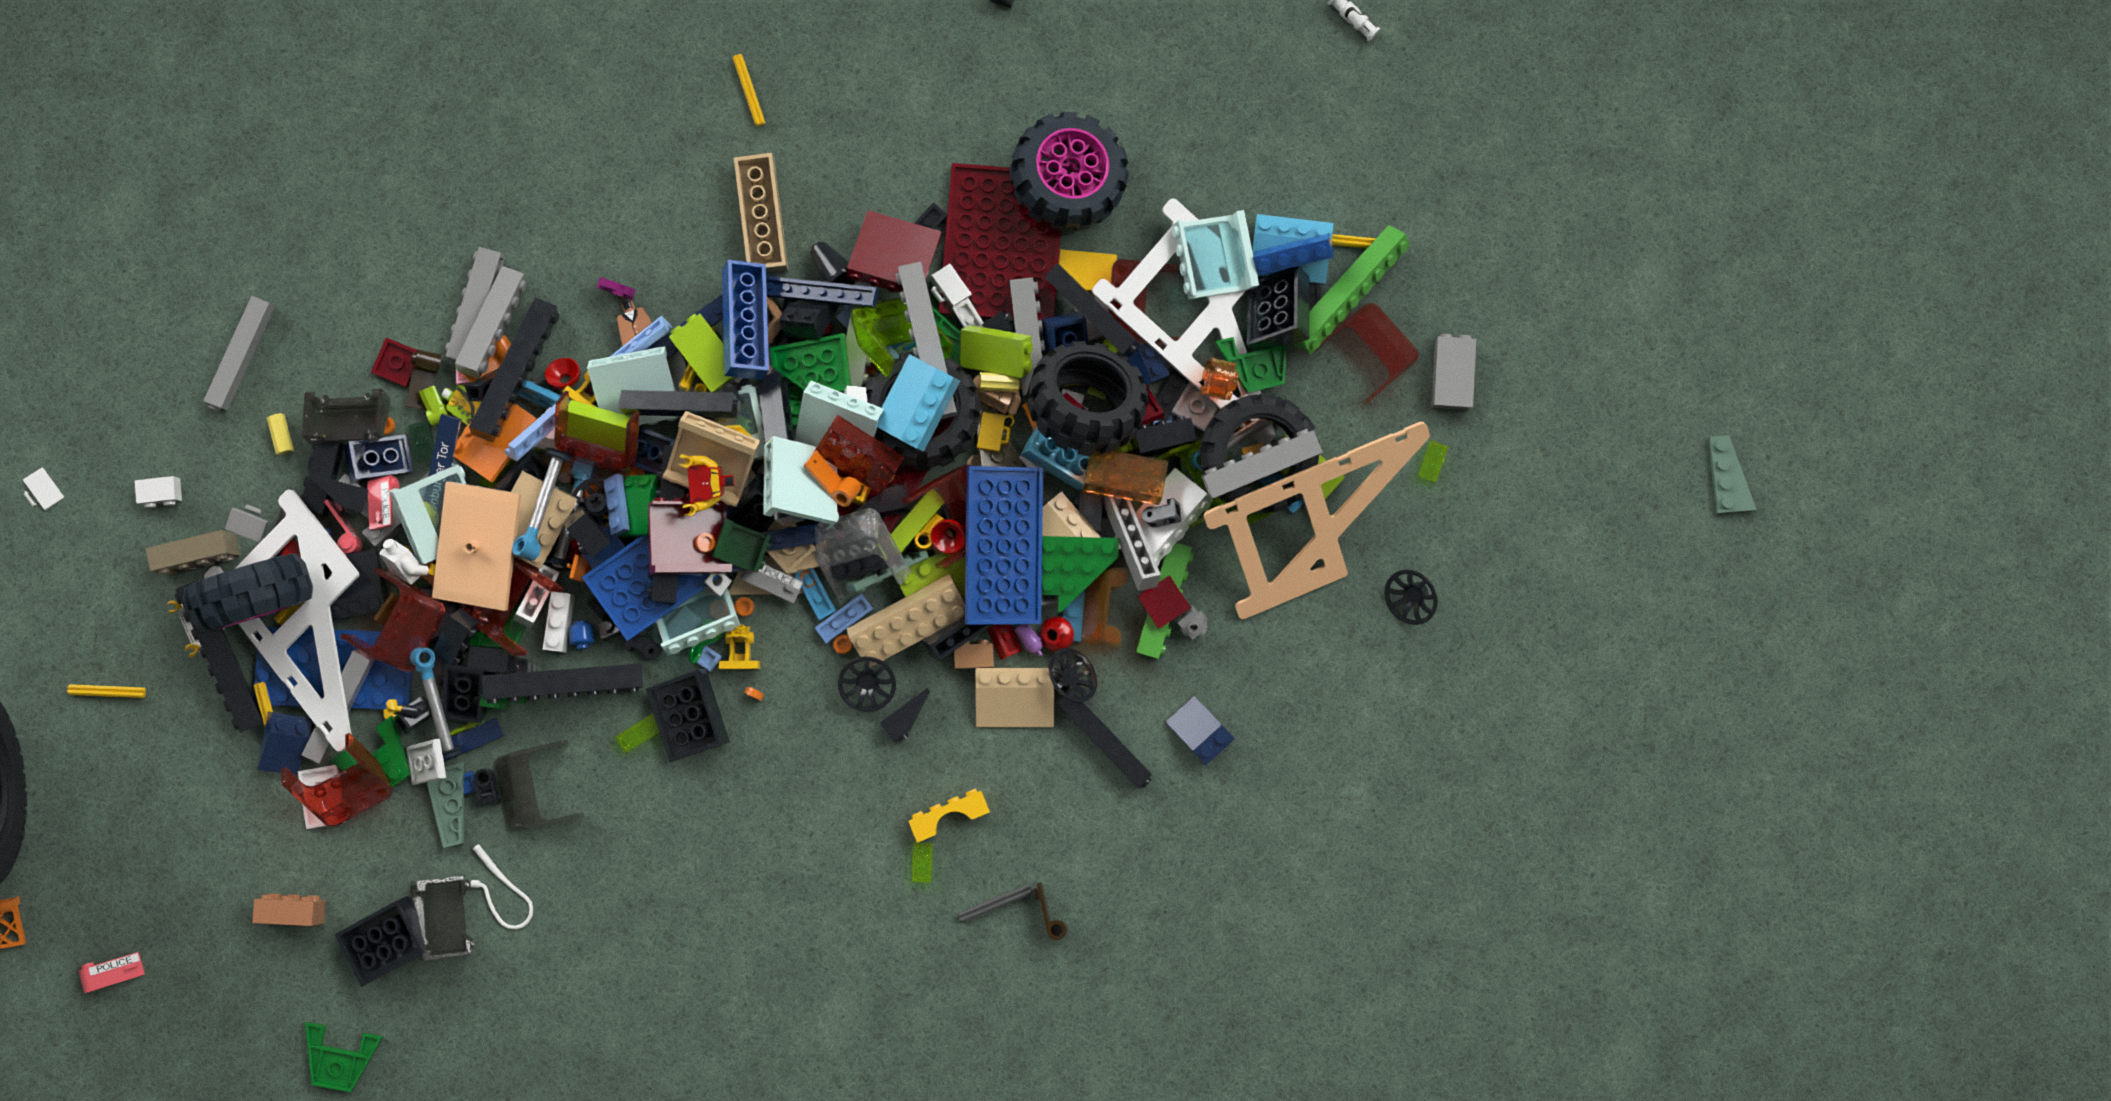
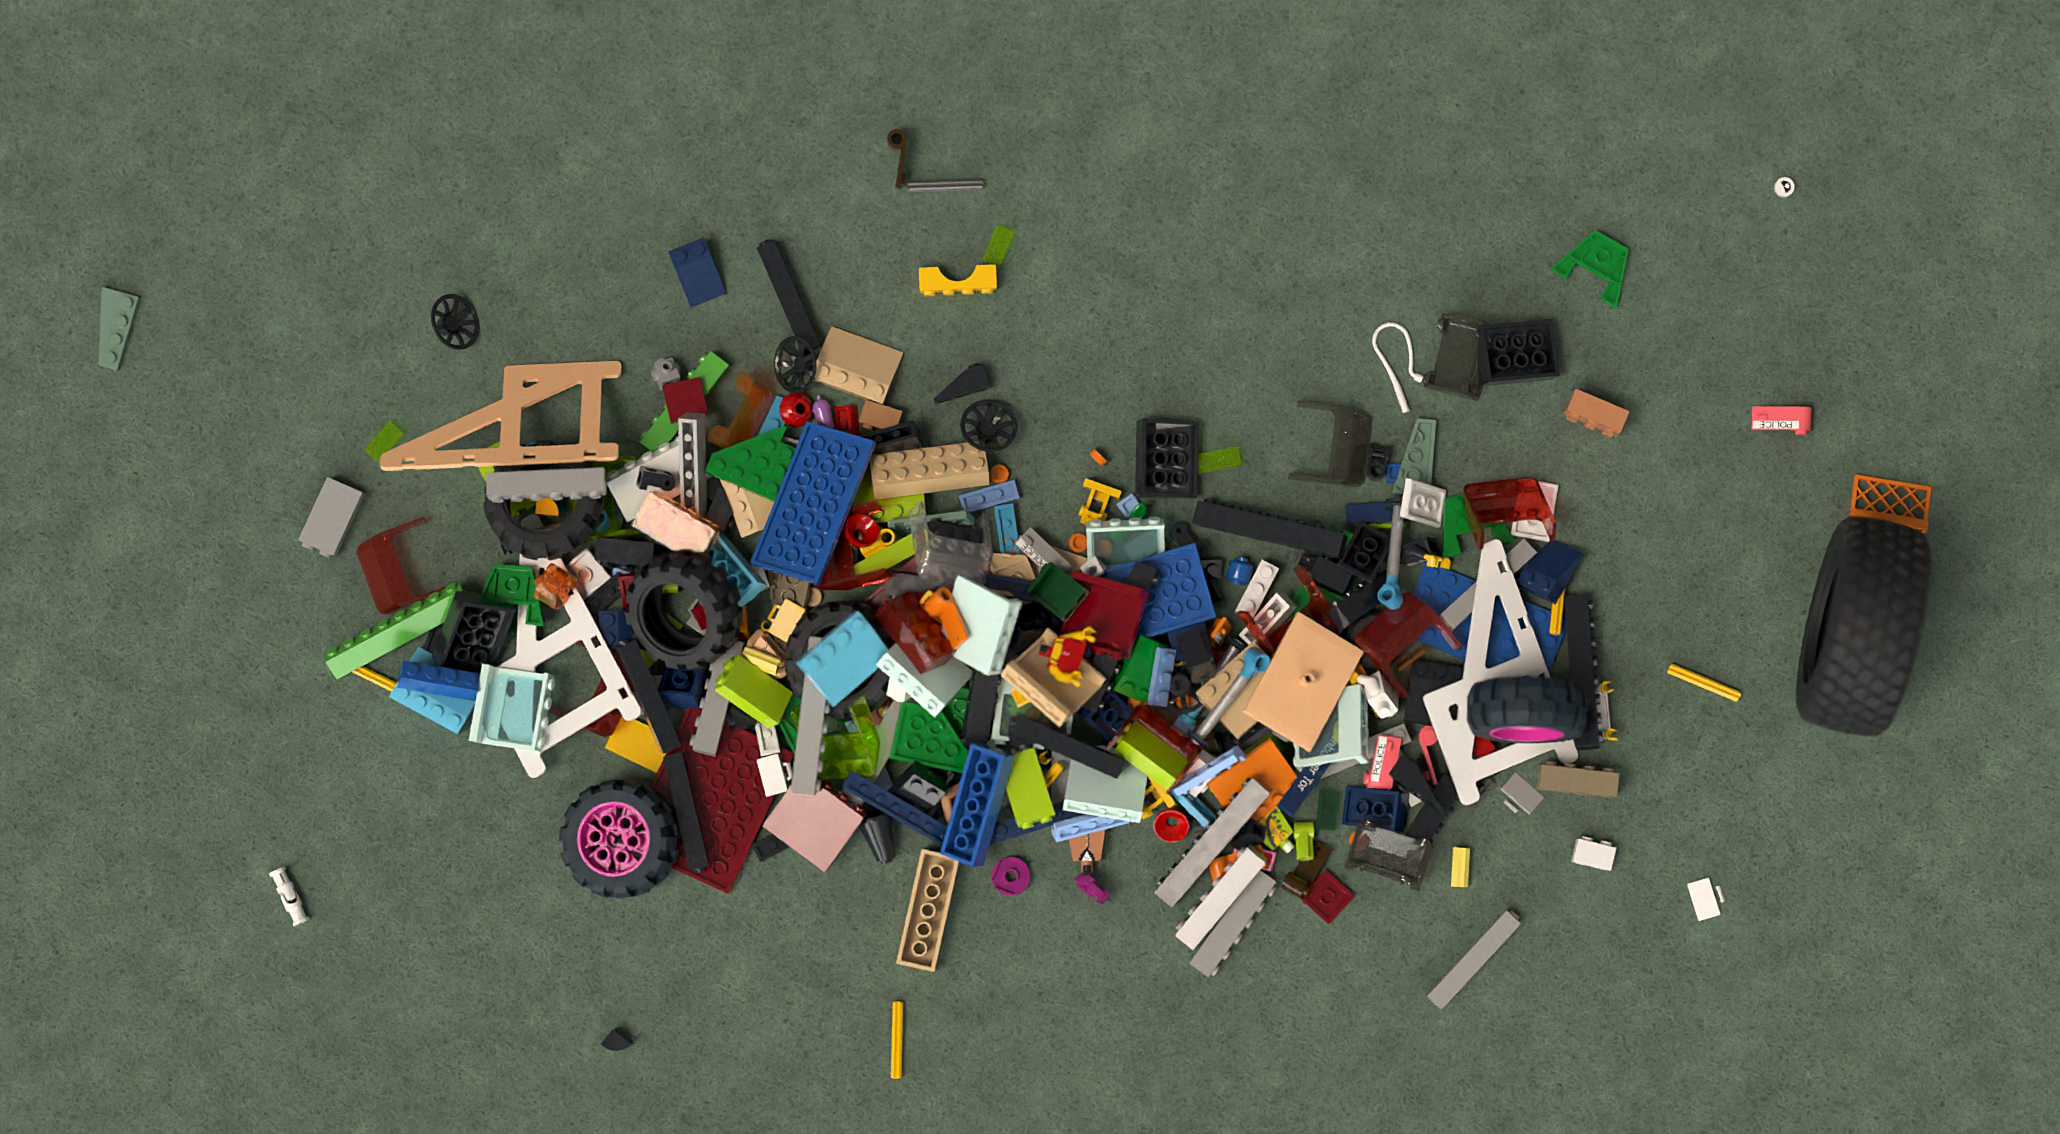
camera: 160 degrees left, 0 degrees up
(689, 266) = (1005, 866): none -> magenta plate
(705, 542) = (1089, 606): orange tile -> none
(1017, 220) = (686, 812): none -> black brick

